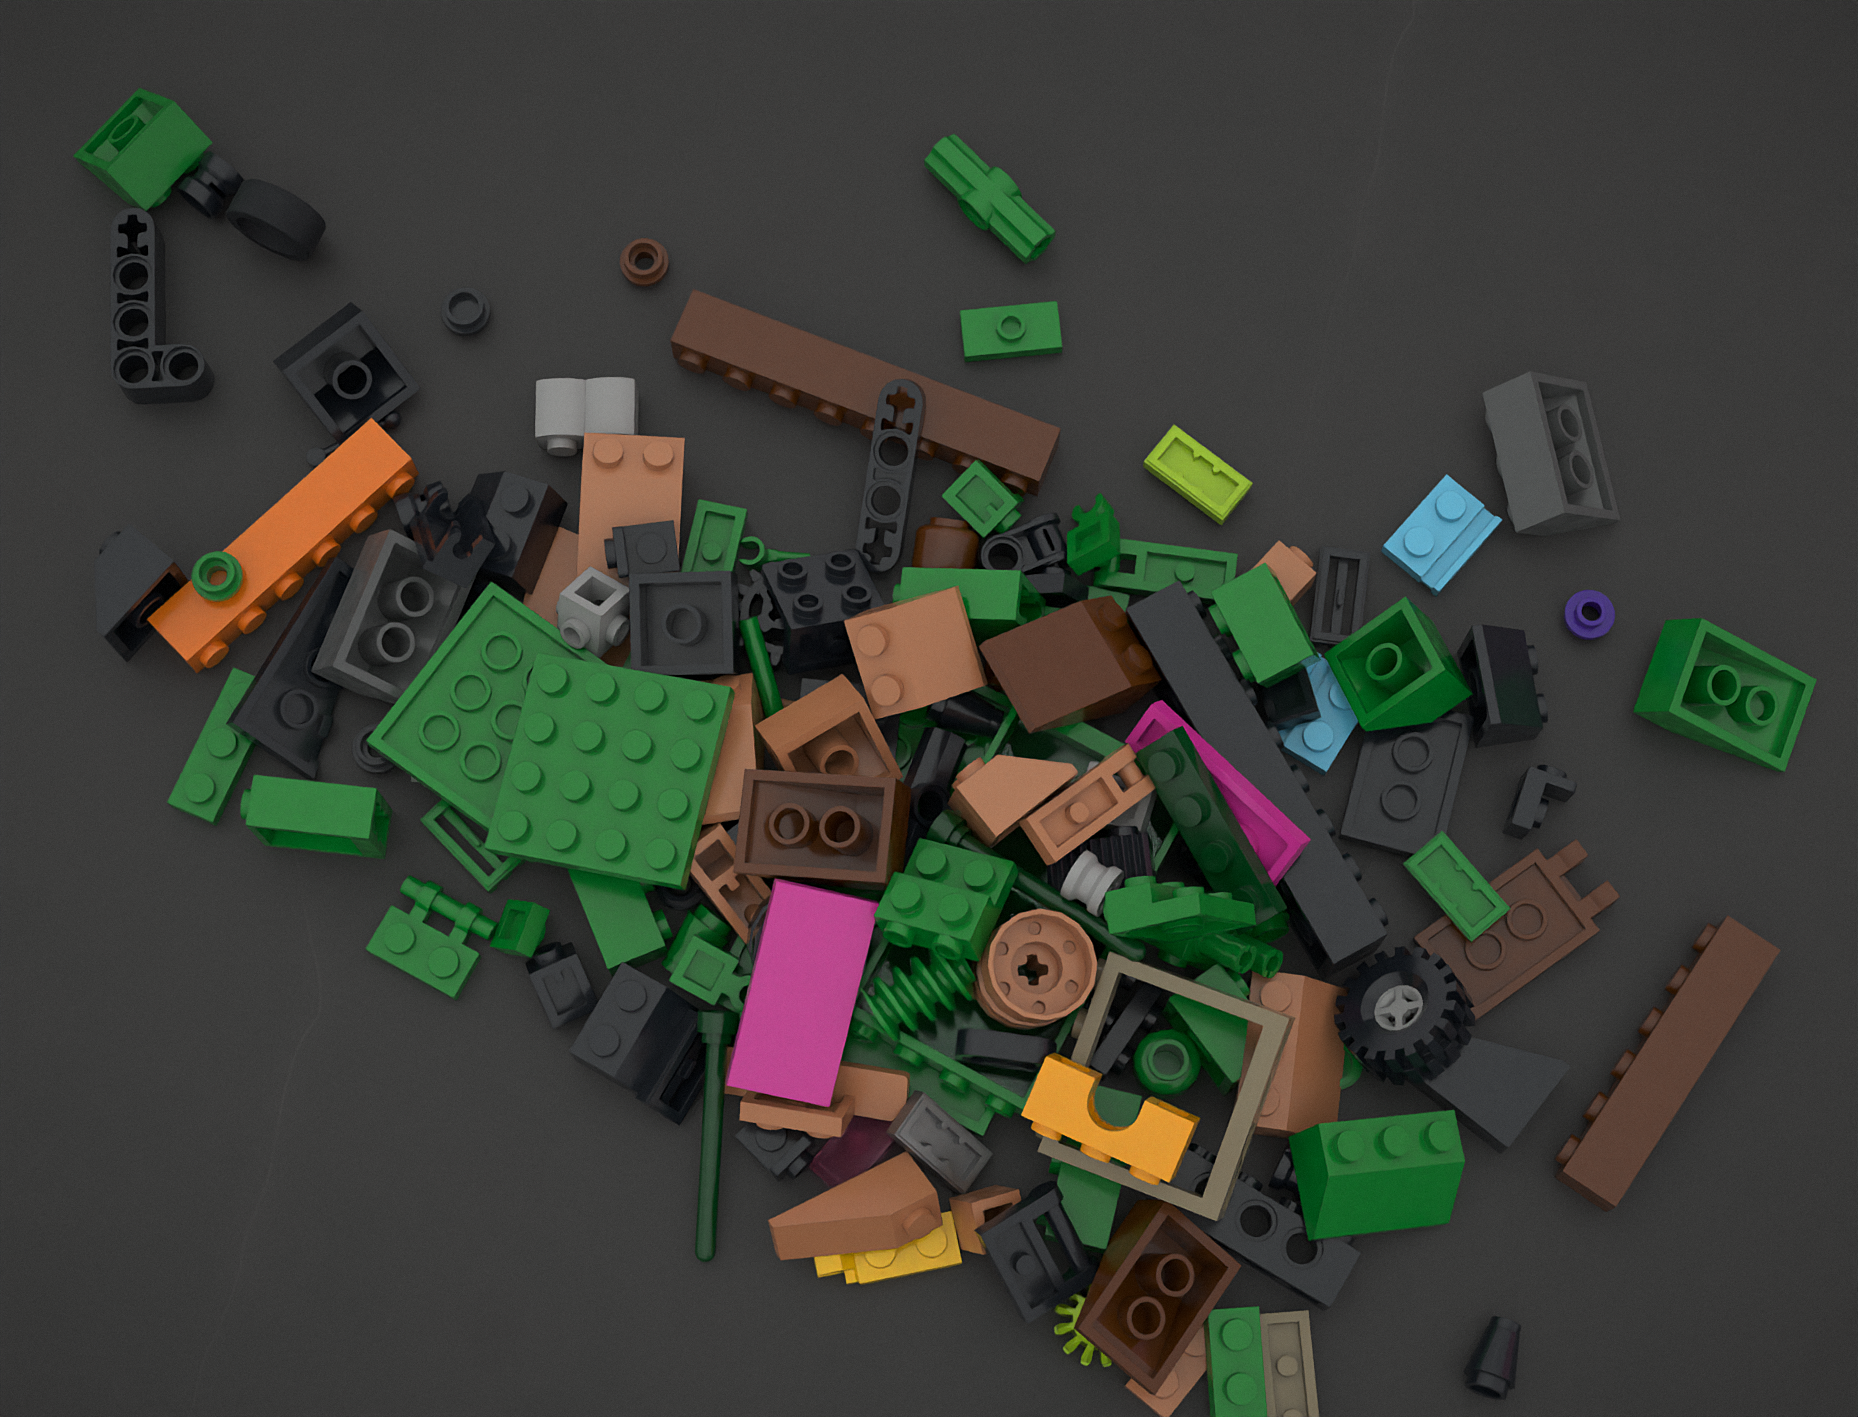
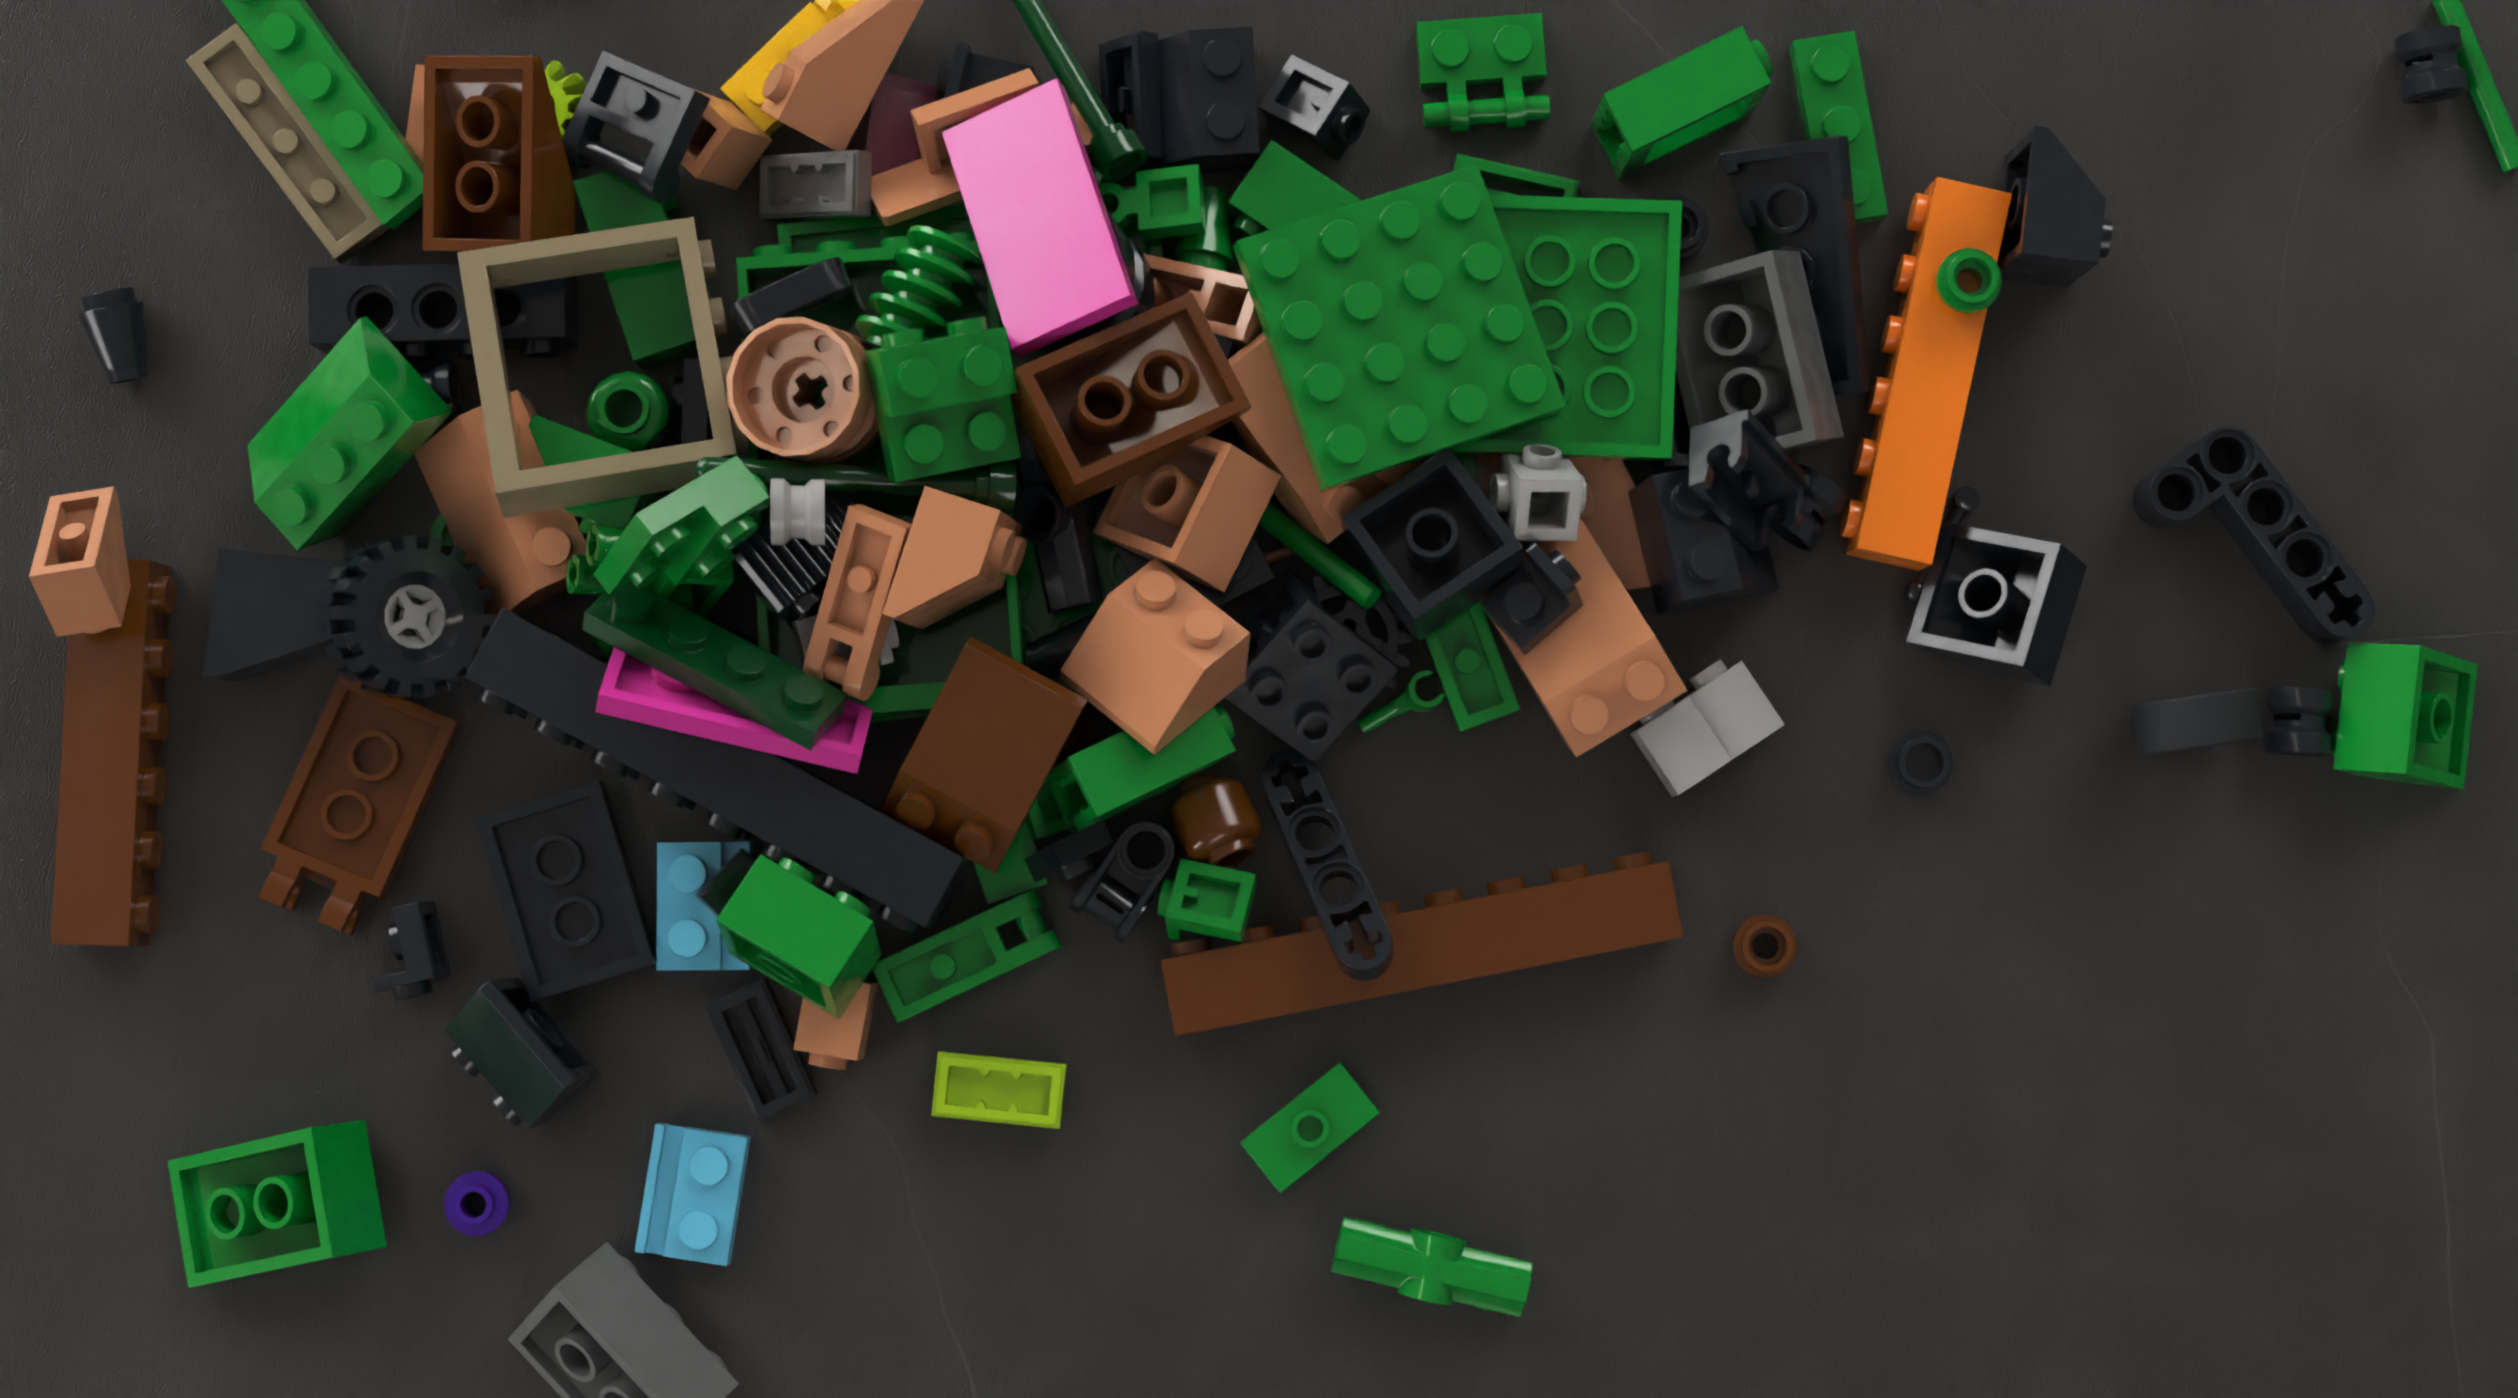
camera: 145 degrees right, 10 degrees up
(520, 928) = (1395, 133): green plate -> none
(1065, 1106) = (573, 275): light orange arch -> none
(1096, 537) = (1059, 937): green plate -> none
(1397, 670) = (639, 994): green slope -> none
(1456, 886) = (438, 796): green plate -> none
(1607, 1189) = (82, 563): none -> nougat slope

